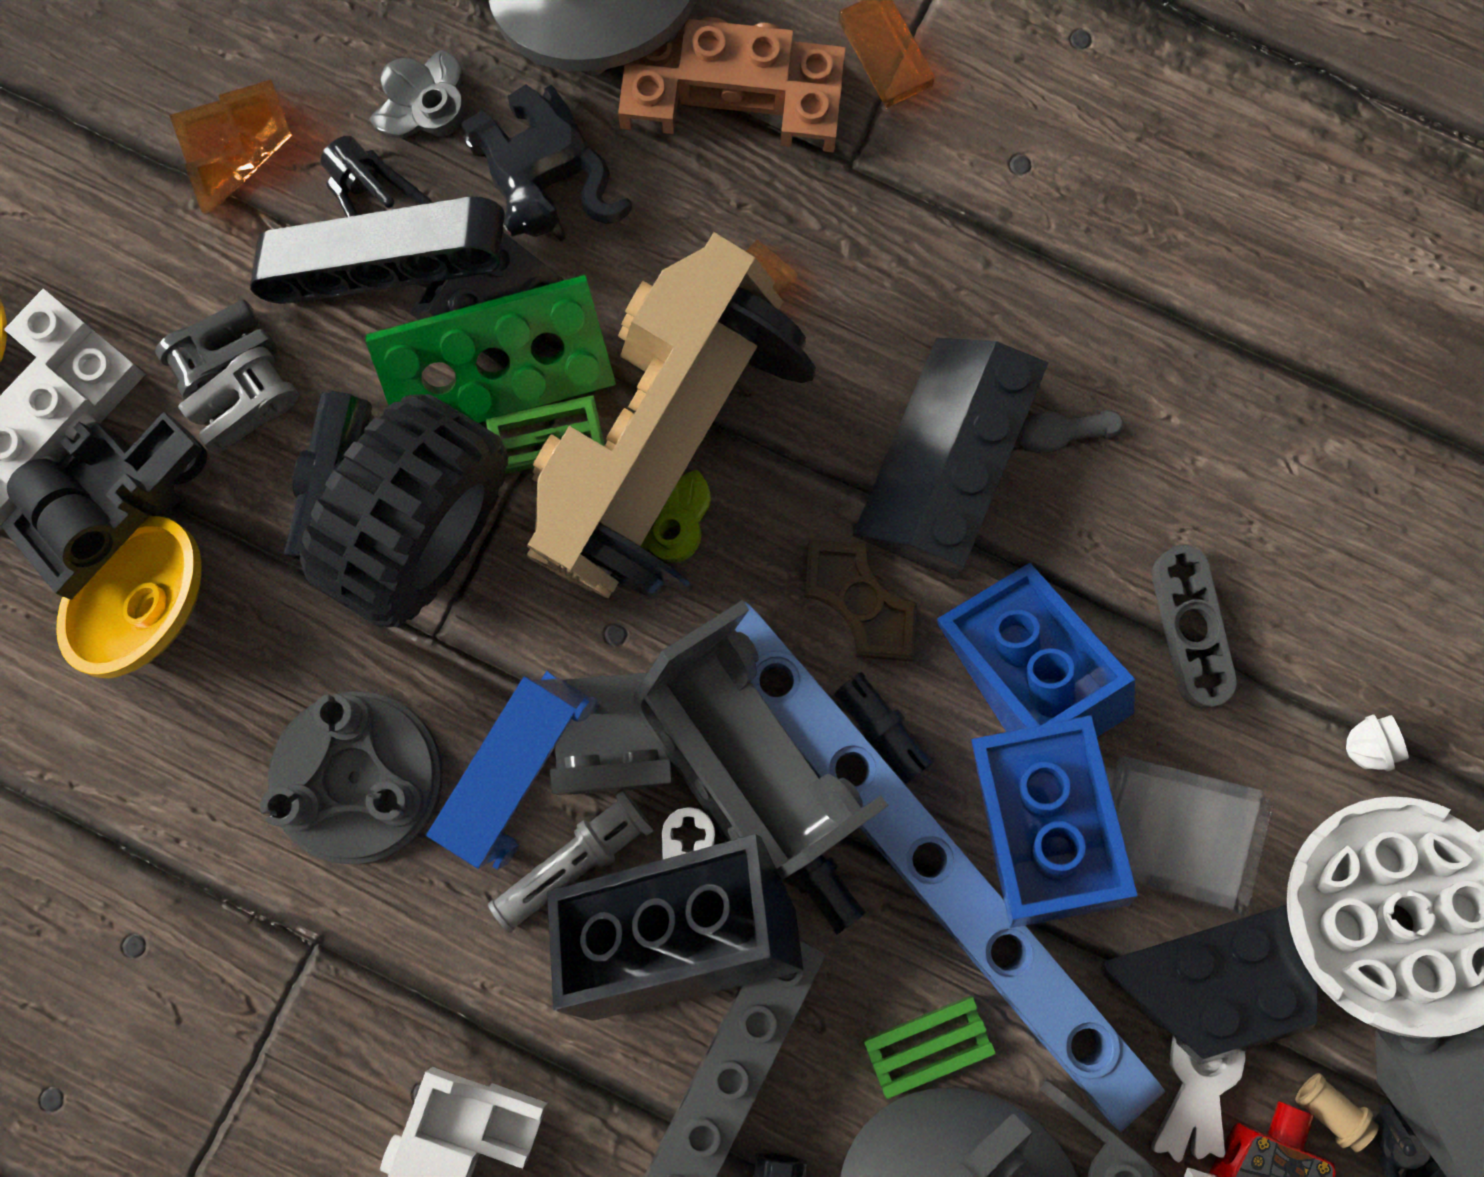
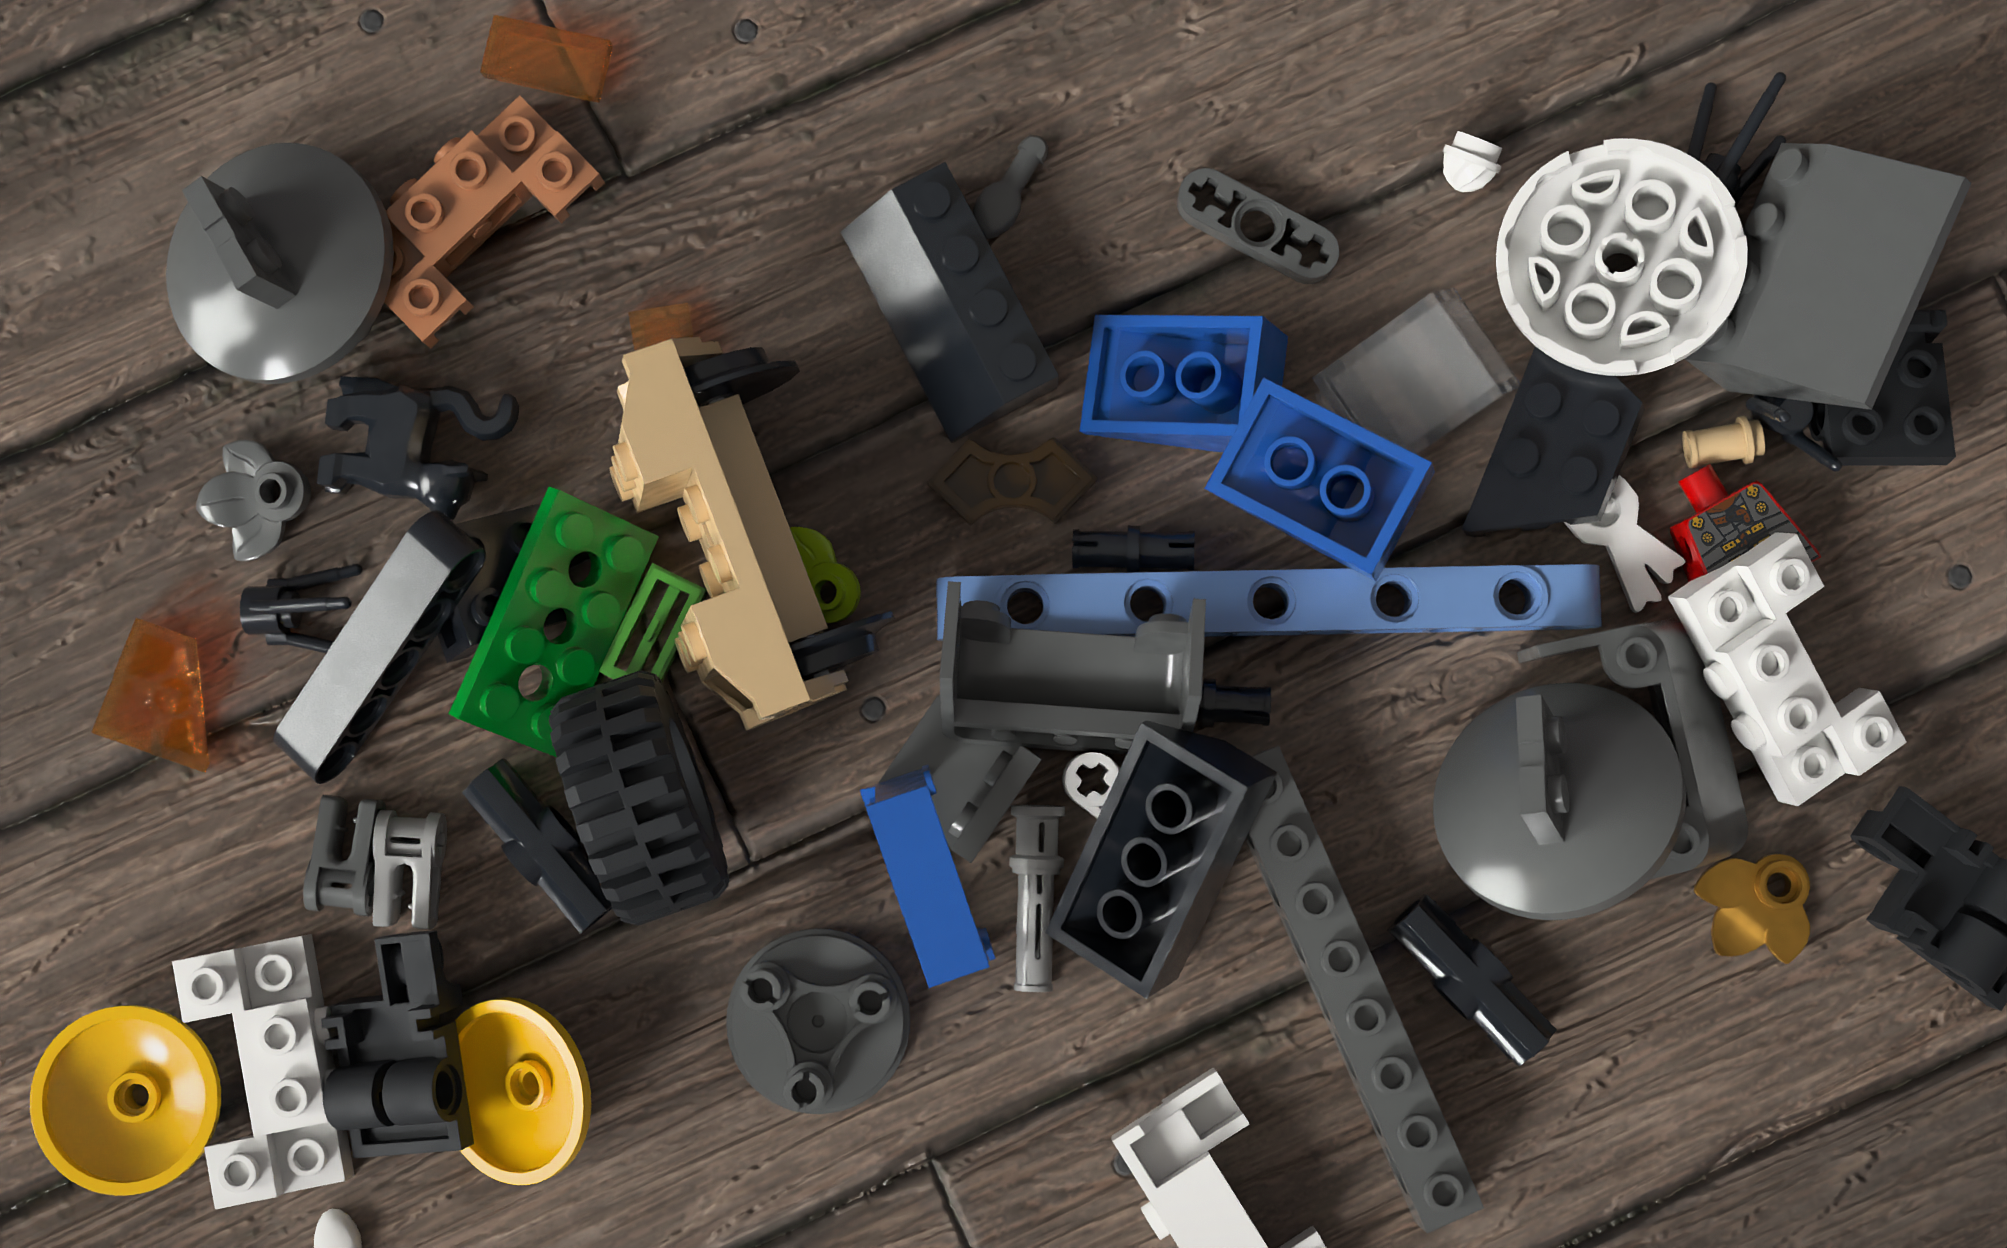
camera: 50 degrees left, 5 degrees up
(939, 1068) = (1430, 674): bright green tile -> none

